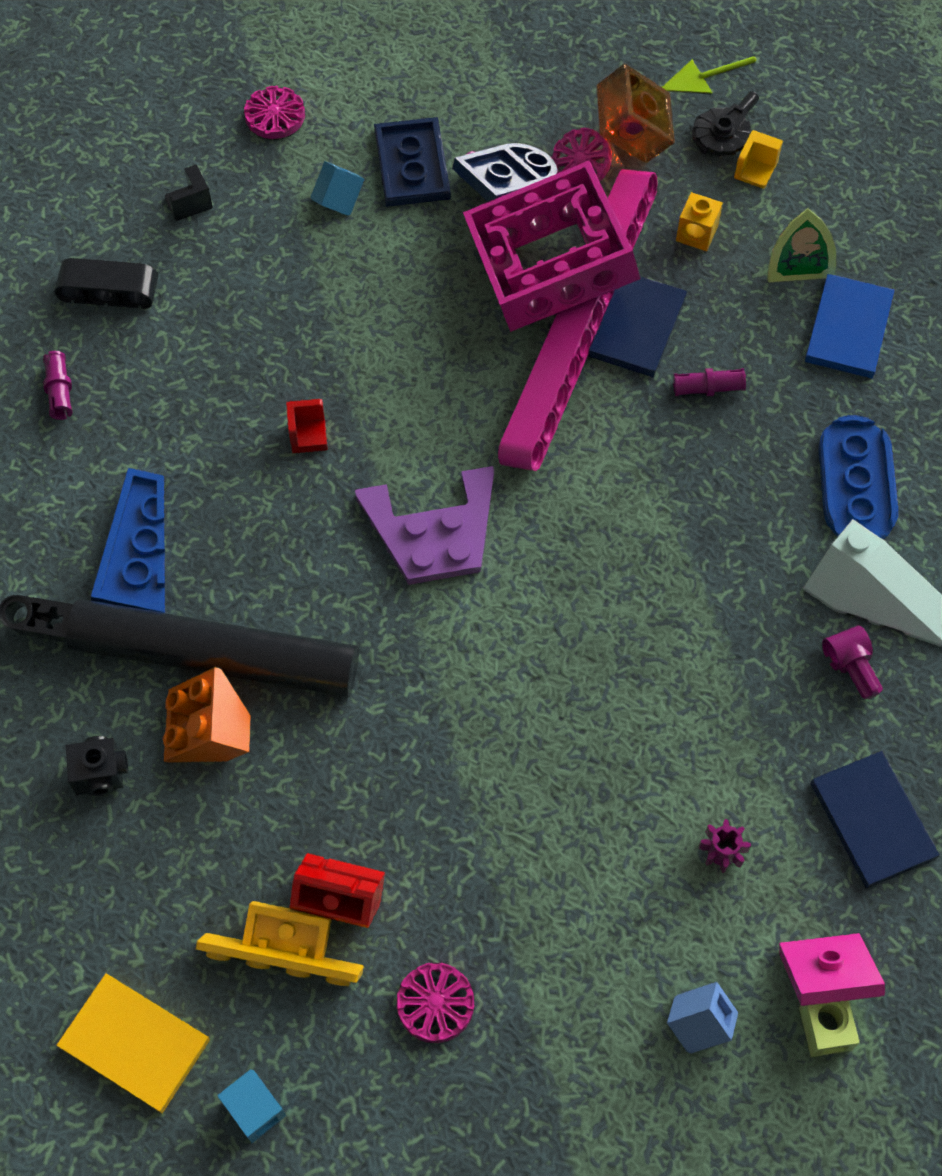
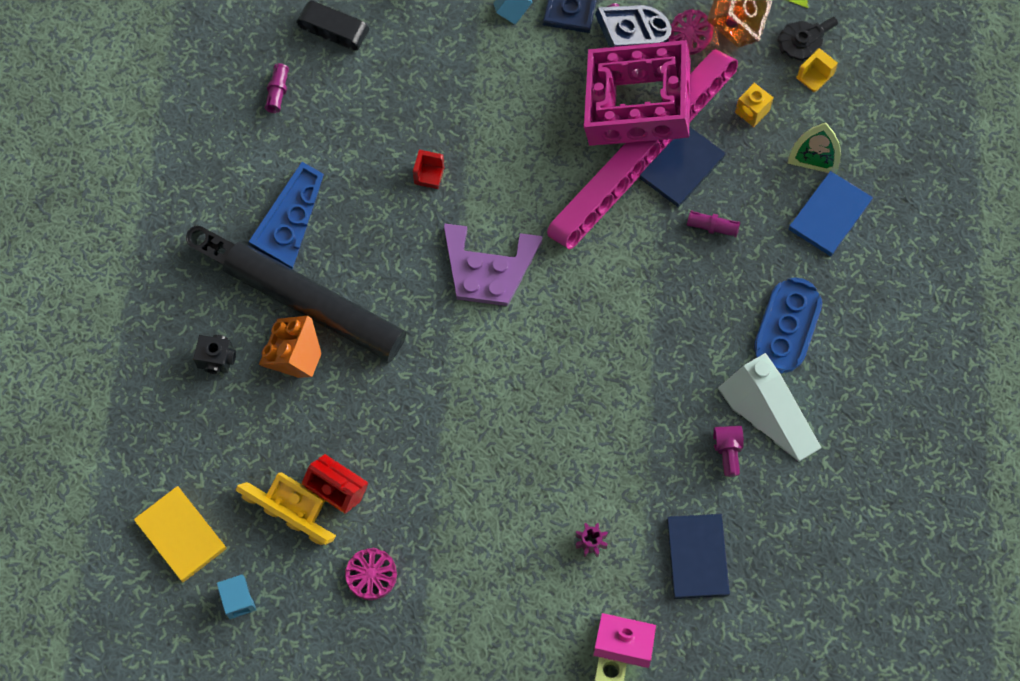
camera: 20 degrees right, 5 degrees up
(702, 1018) = (532, 642): medium blue panel -> none

